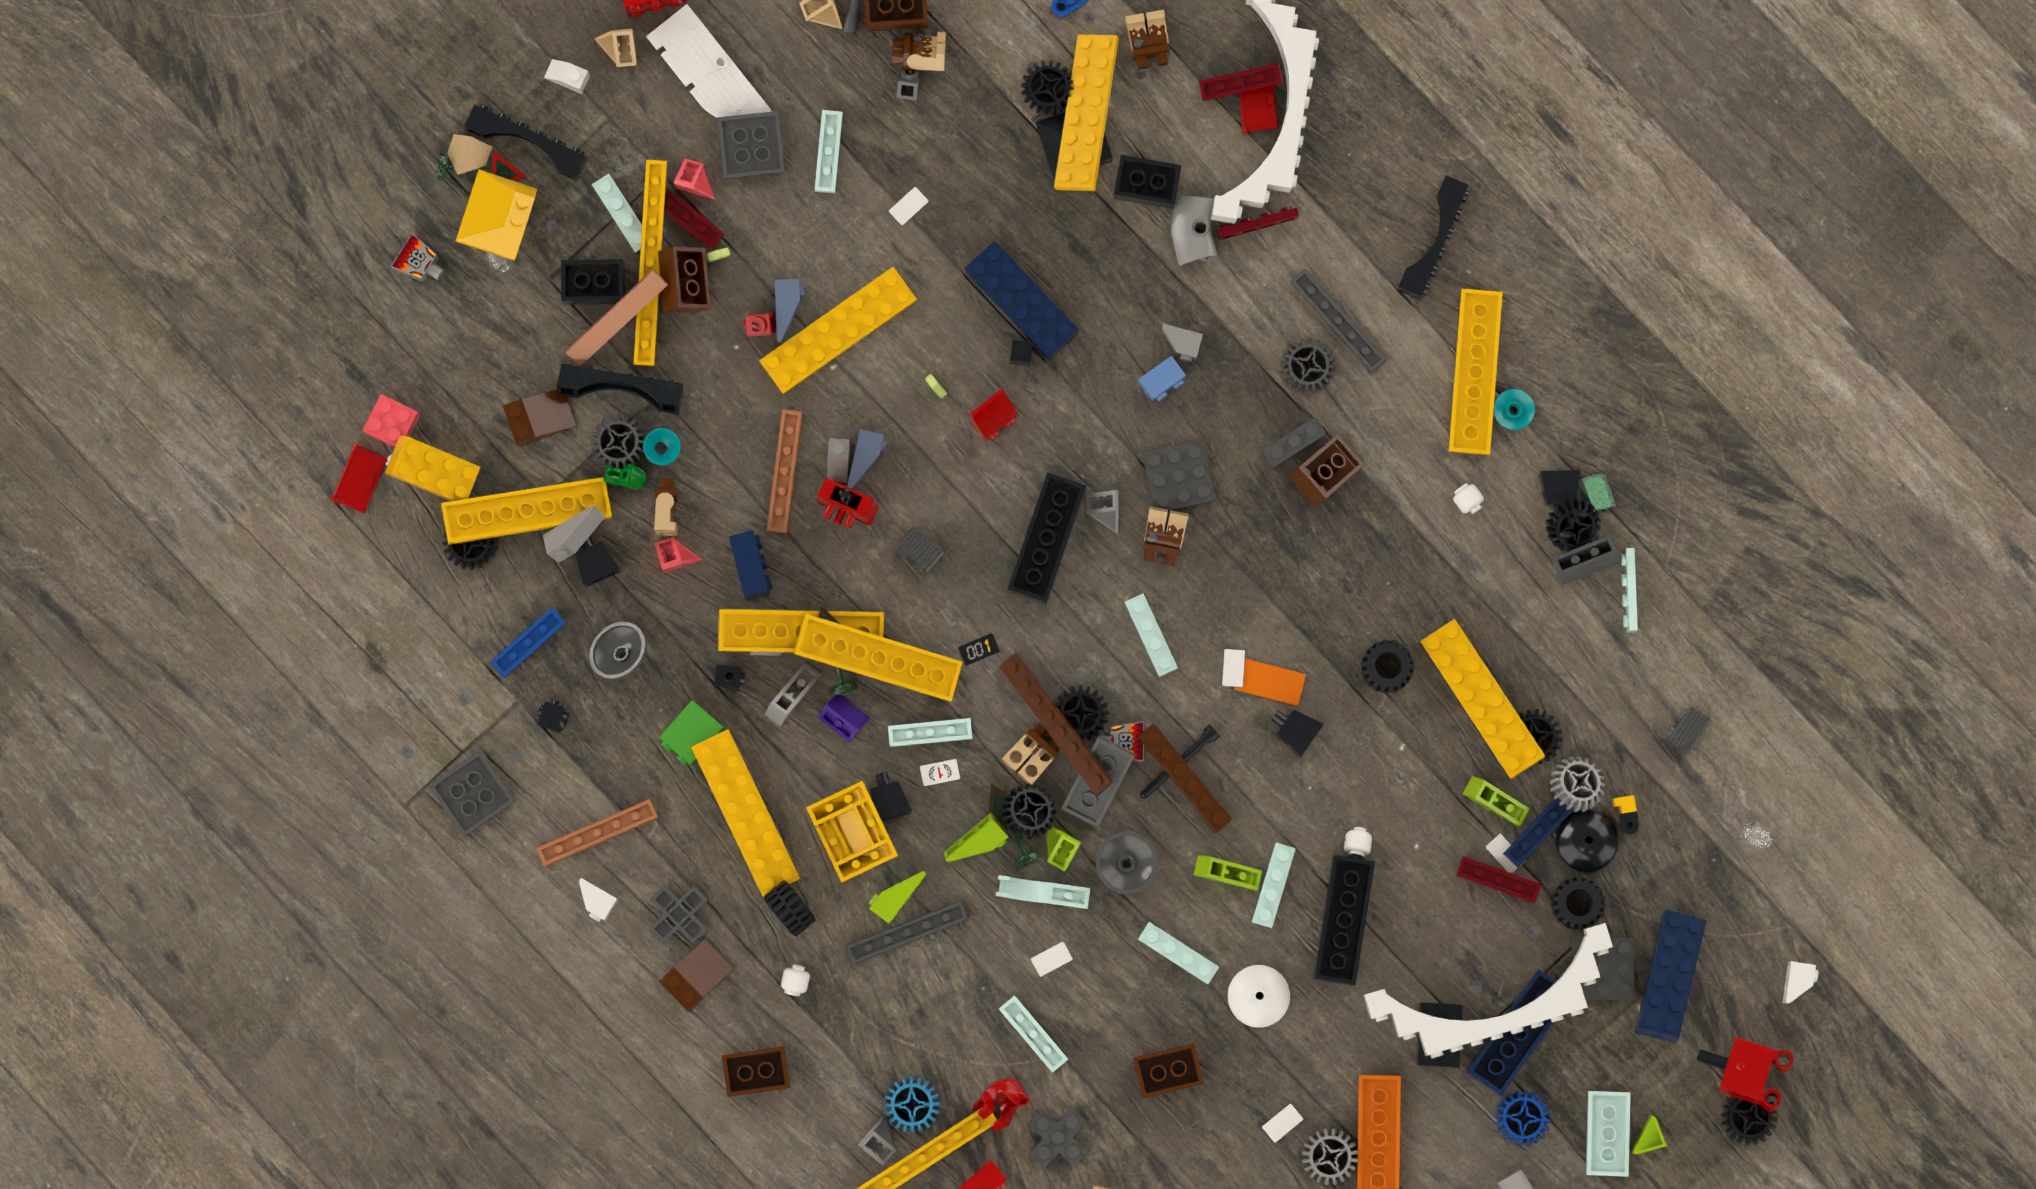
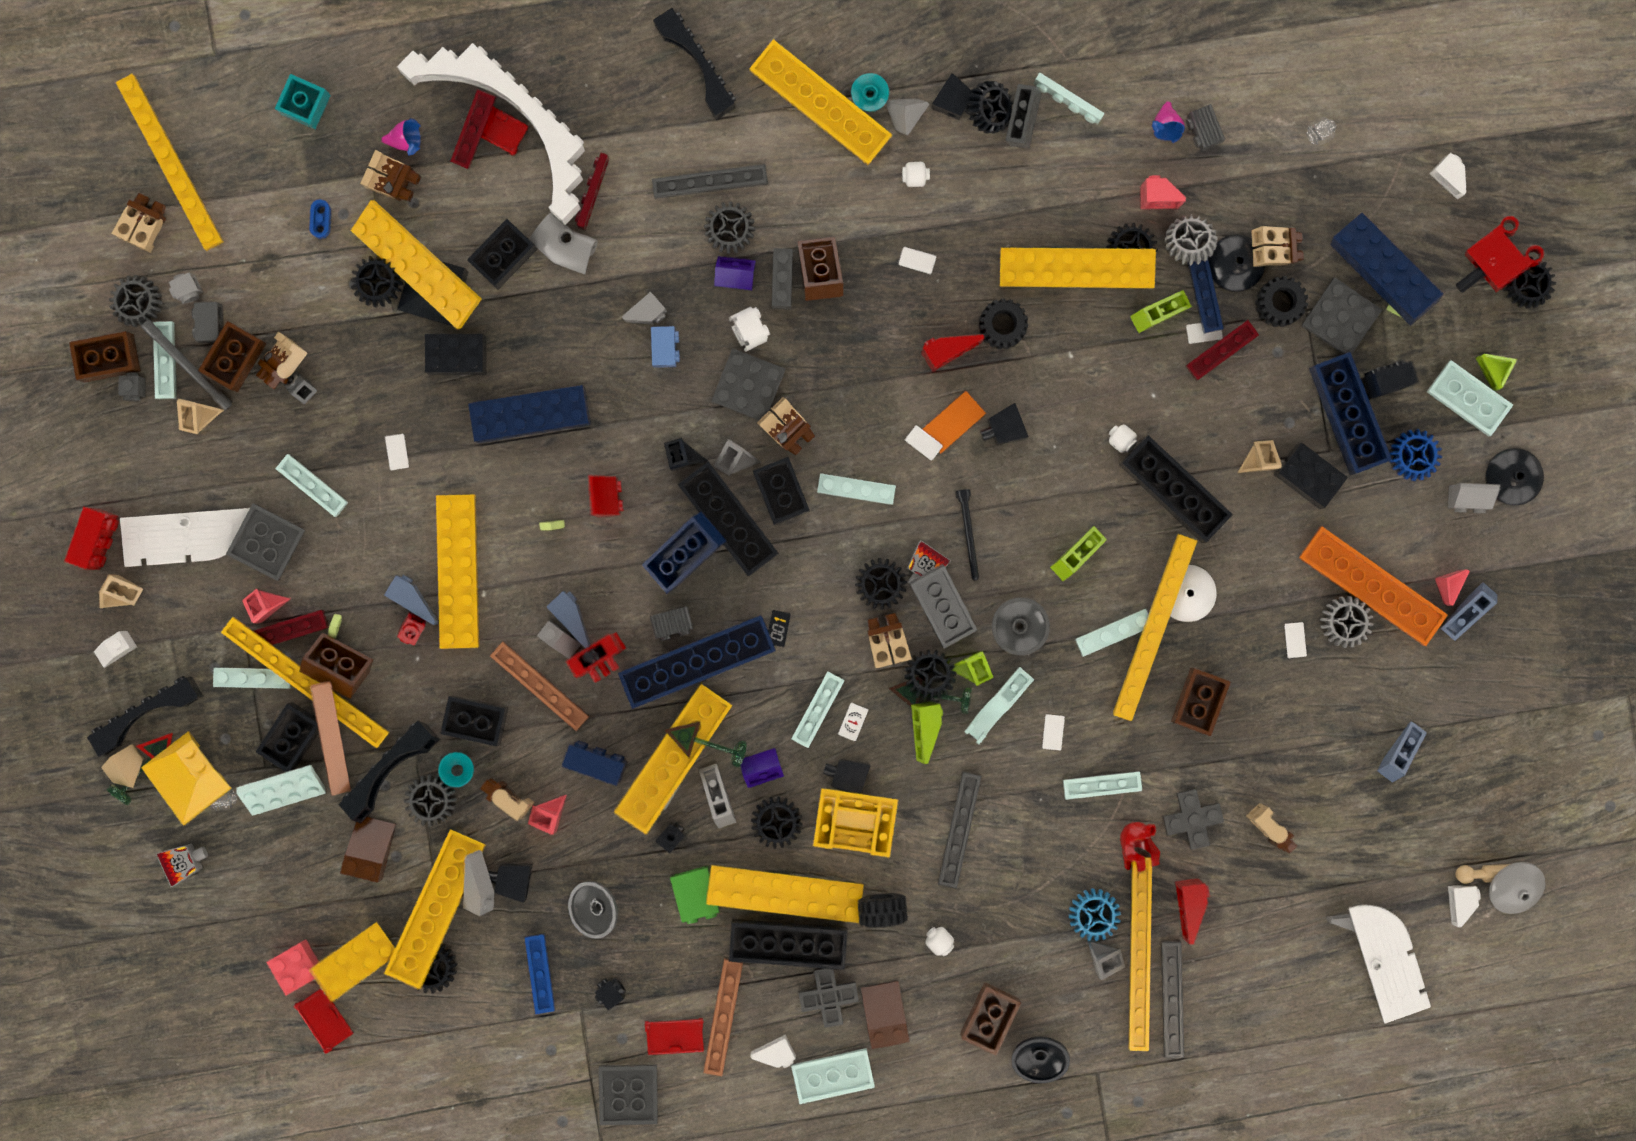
camera: 55 degrees left, 5 degrees up
(540, 305) = (281, 790): none -> light aqua plate
(547, 794) = (675, 1033): none -> red door
(610, 966) = (833, 1076): none -> light aqua plate
(629, 477) = (462, 811): green piece -> none
(702, 845) = (788, 944): none -> black brick
(716, 433) = (474, 720): none -> black brick
(740, 1142) = (1040, 1059): none -> black dish
(817, 775) = (785, 820): none -> black gear
(878, 657) = (733, 712): yellow plate -> none
(894, 898) = (927, 824): lime slope -> none
(901, 595) = (696, 661): none -> dark blue brick
(990, 518) = (684, 552): none -> dark blue brick
(1021, 353) = (570, 441): black brick -> none
(1030, 200) = (455, 354): none -> black brick
(1056, 724) = (878, 609): reddish brown plate -> none
(1076, 459) = (682, 455): none -> black slope
(1103, 568) = (781, 491): none -> black brick
(1184, 778) = (984, 537): reddish brown plate -> none
(1193, 26) = (404, 136): none -> hat
(1207, 984) = (1154, 627): none -> yellow plate
(1229, 443) = (749, 328): none -> white brick
(1270, 397) = (734, 273): none -> dark purple panel
(1273, 885) = (1111, 524): light aqua plate -> none
(1328, 630) = (945, 349): none -> red slope
(1393, 552) = (917, 260): none -> white sticker
(1425, 980) = (1261, 458): none -> tan slope
(1517, 453) = (905, 113): none -> light grey slope
(1561, 998) = (1350, 372): white arch -> none
(1571, 1044) = (1389, 378): none -> black brick
(1598, 491) = (976, 71): clear green piece -> none
(1598, 728) = (1160, 194): none -> coral slope
(1625, 873) = (1278, 246): none -> tan hips
(1628, 813) = (1237, 216): leg -> none
(1668, 694) = (1168, 124): none -> hat

